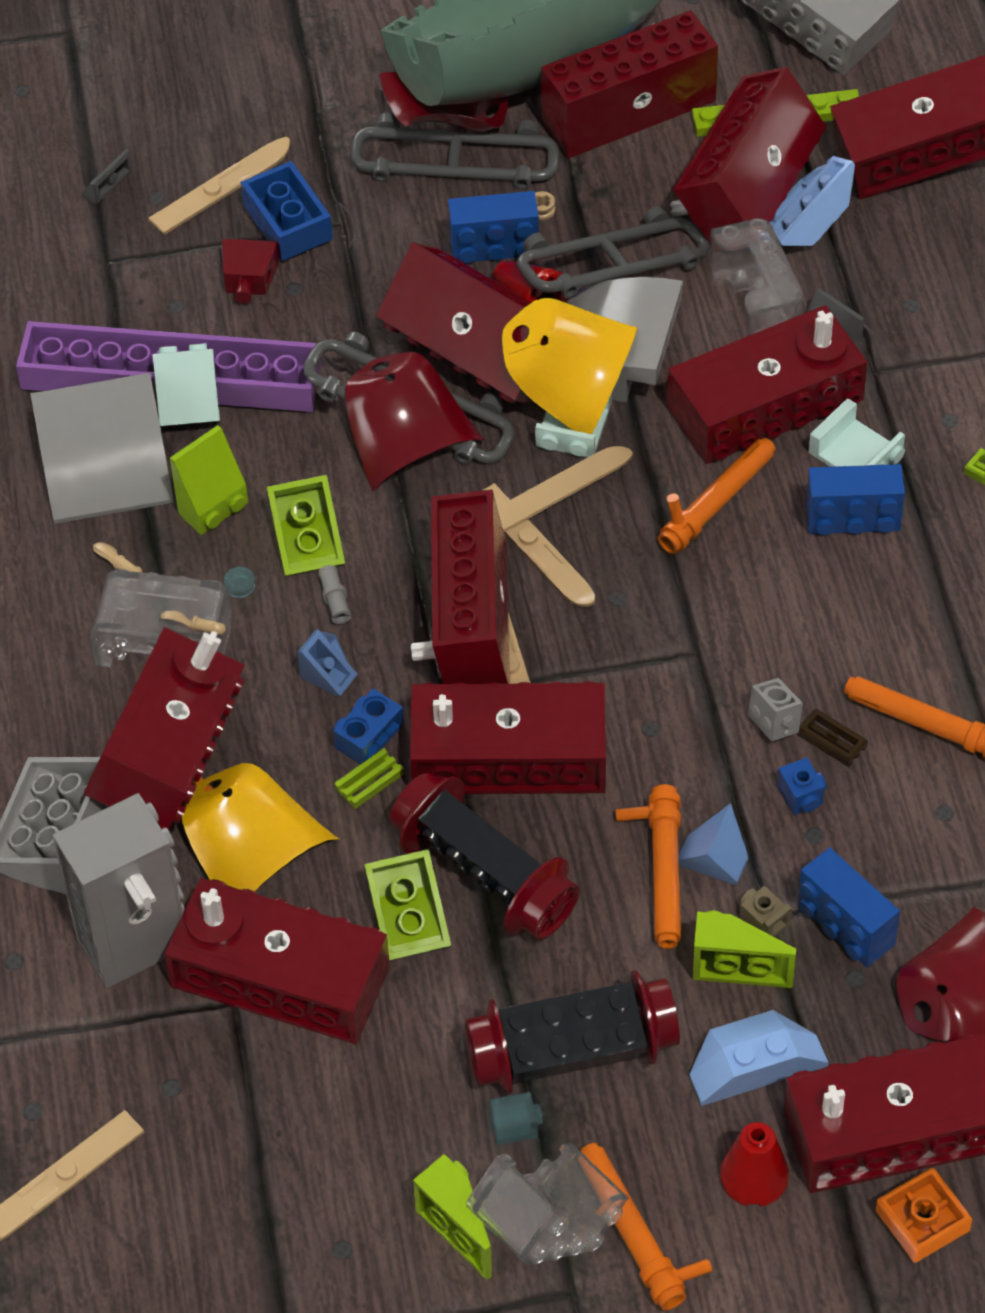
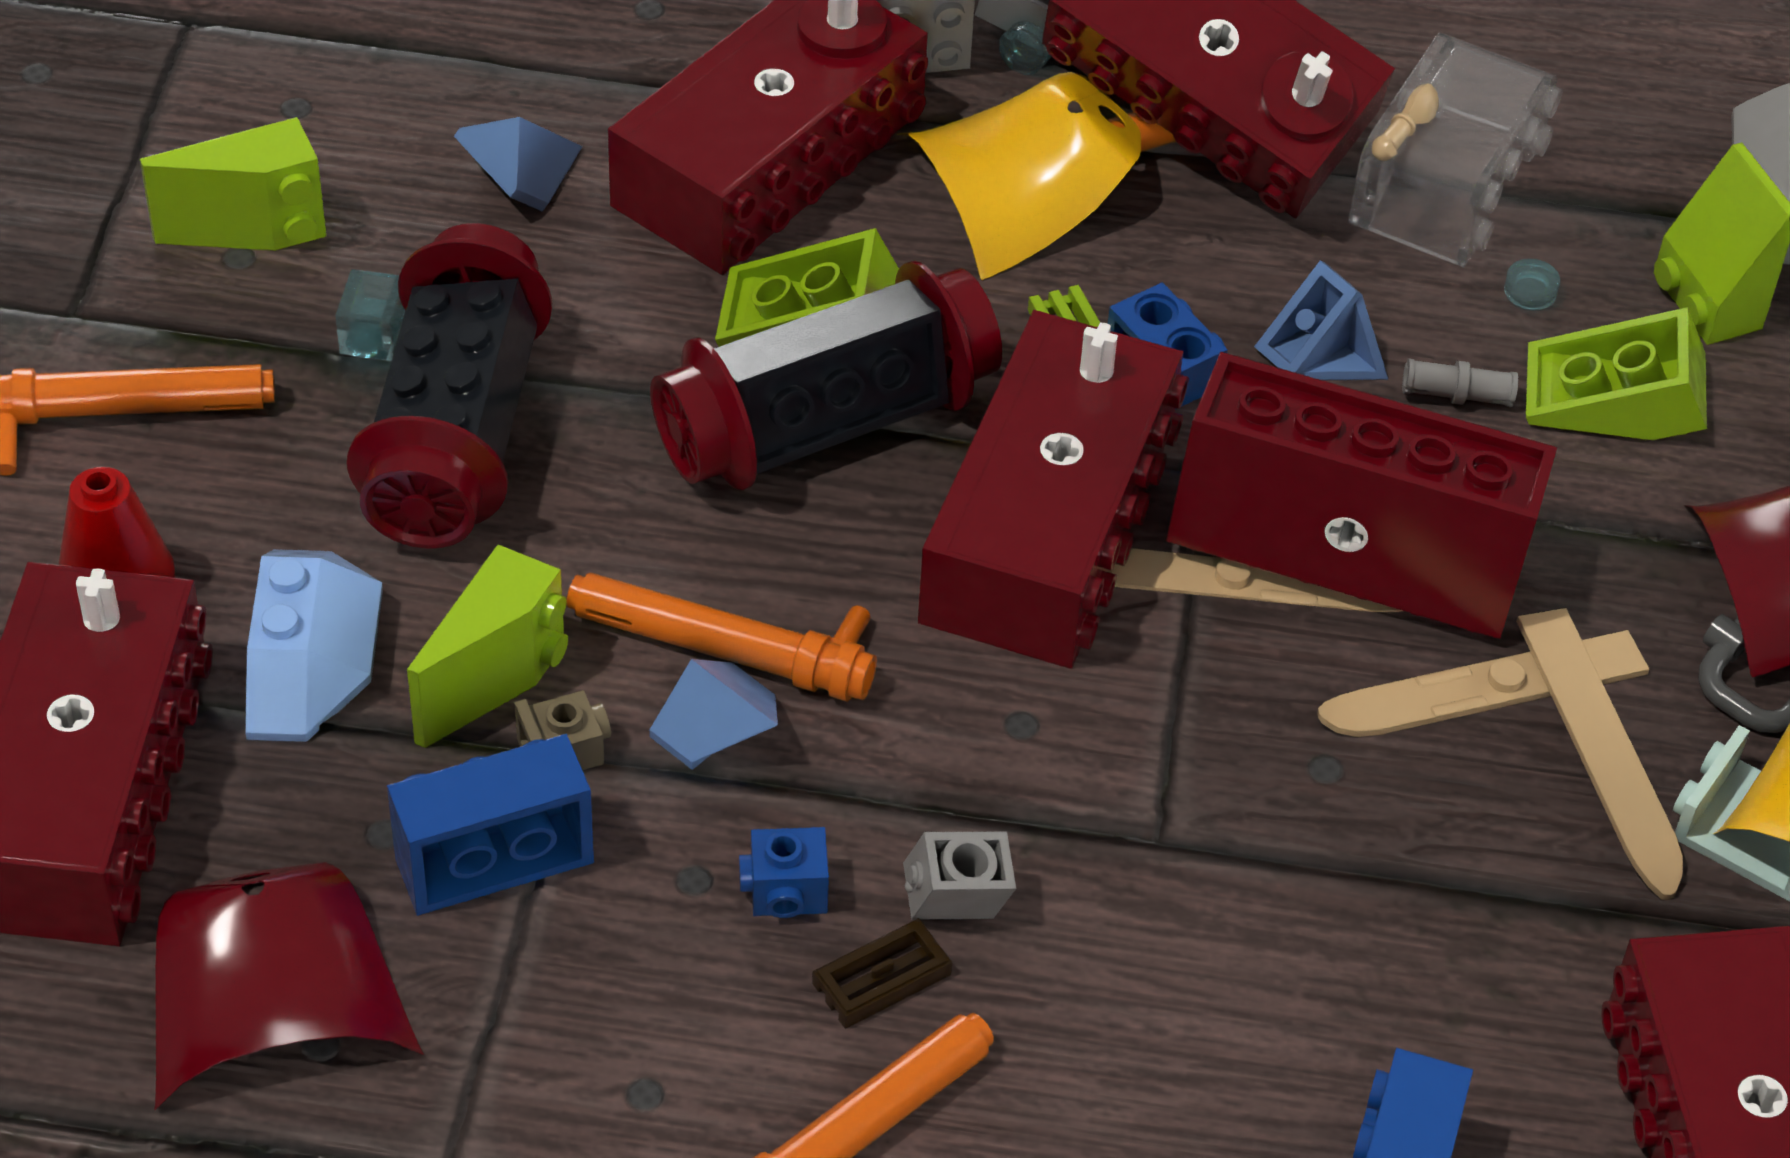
camera: 105 degrees right, 5 degrees down
(110, 553) = (1643, 150): tan piece -> none
(350, 1096) = (521, 157): none -> medium blue slope
(547, 1212) = (165, 245): clear windscreen -> none
(688, 523) = (1452, 909): orange cylinder -> none

